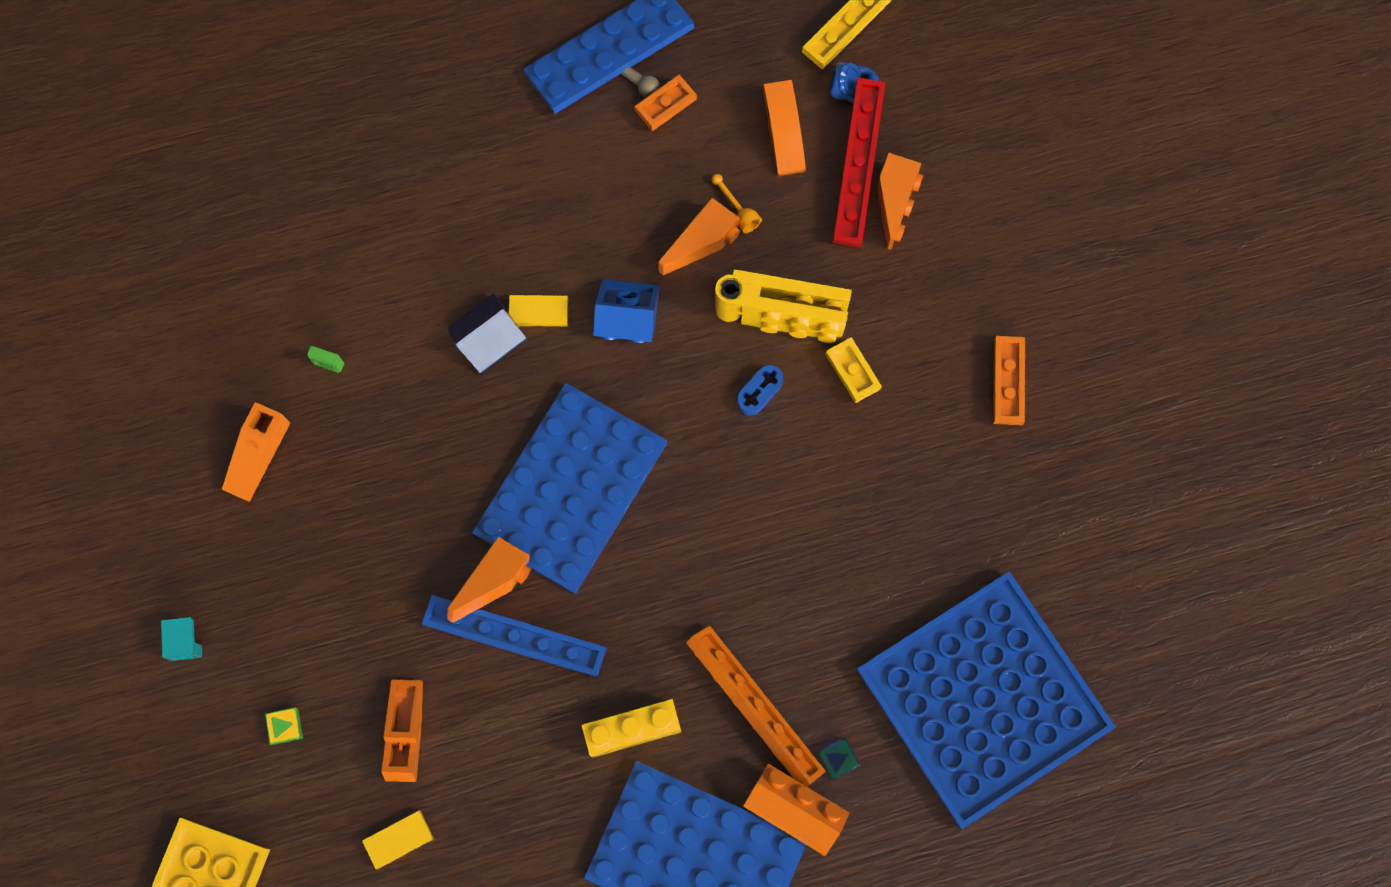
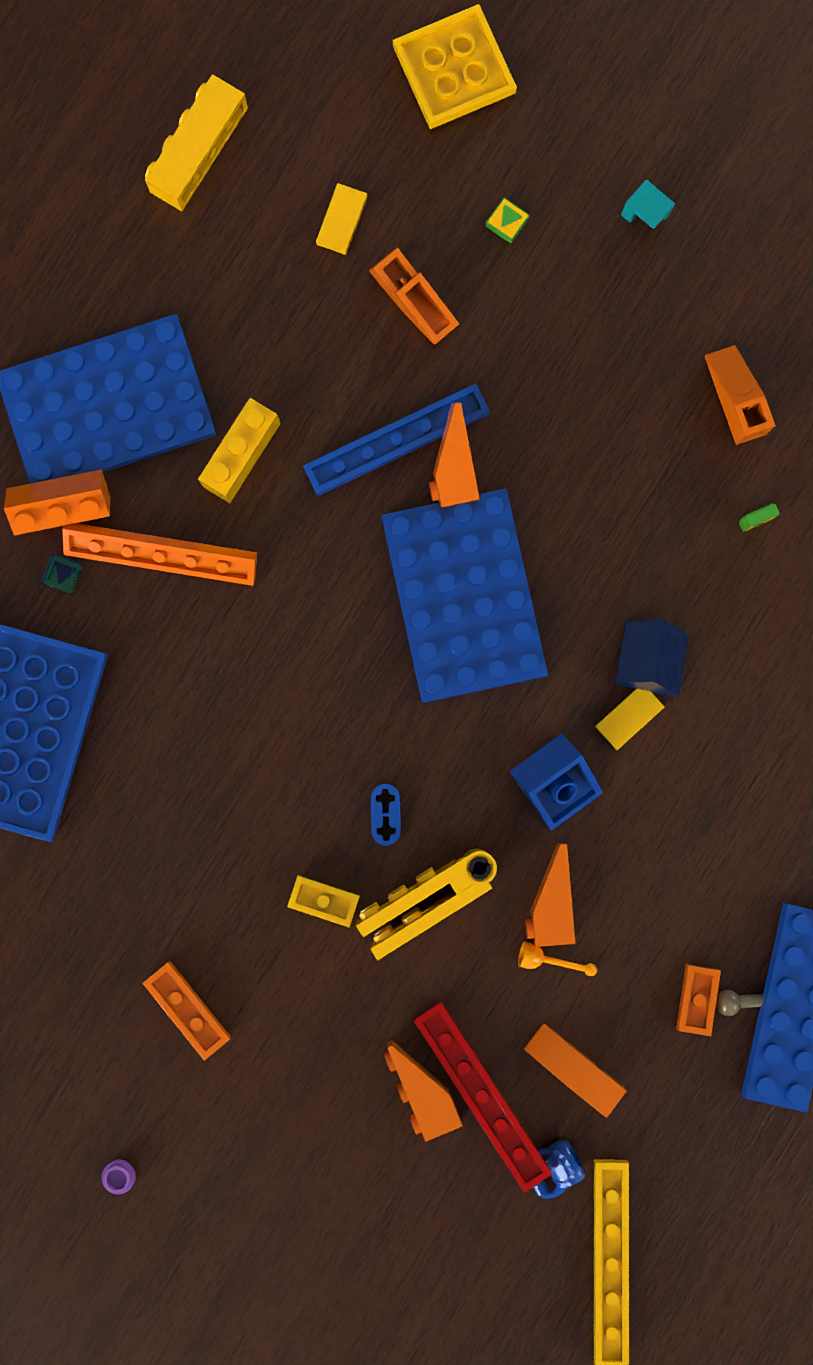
camera: 135 degrees right, 10 degrees up
(1146, 316) = (118, 1176): none -> medium lavender plate

